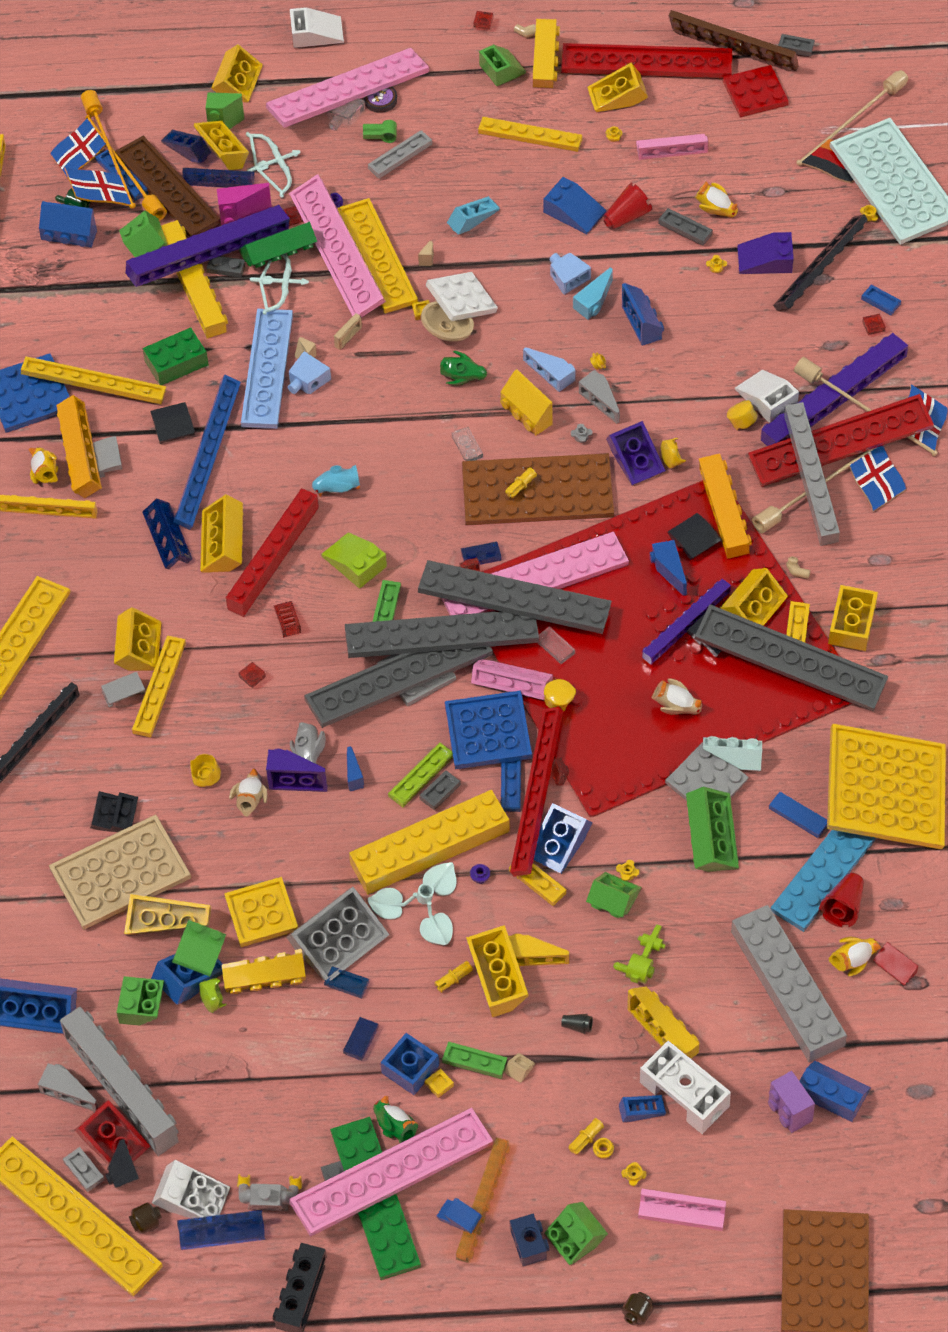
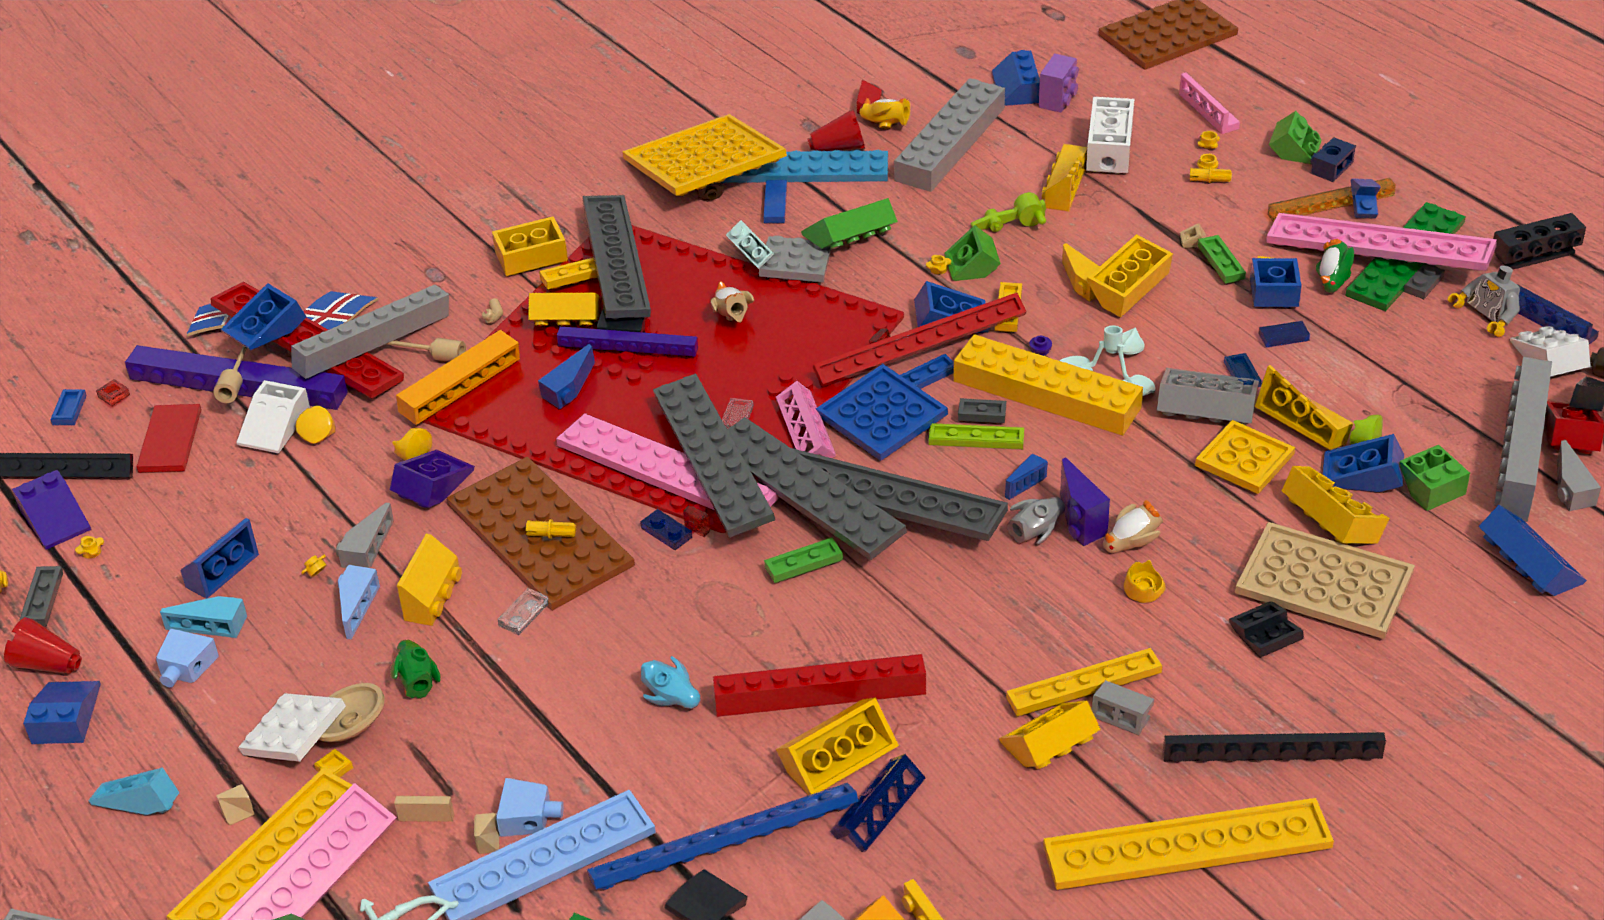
camera: 125 degrees left, 15 degrees down
(199, 948) = (1338, 459): bright green slope -> none
(252, 674) = (992, 615): clear red plate -> none
(291, 629) = (899, 616): clear red slope -> none
(356, 559) = (763, 616): lime slope -> none
(453, 976) = (1160, 308): yellow axle -> none
(558, 693) = (799, 370): yellow hair -> none
(578, 1022) = (1116, 221): pearl dark grey cone -> none
(581, 437) = (434, 529): light grey plate -> none
(634, 1115) = (1151, 162): blue slope -> none
(637, 1308) = (1312, 90): dark brown head -> none
(694, 536) = (512, 384): black slope -> none
(800, 339) = (169, 438): none -> red tile
(861, 410) = (264, 318): none -> blue slope

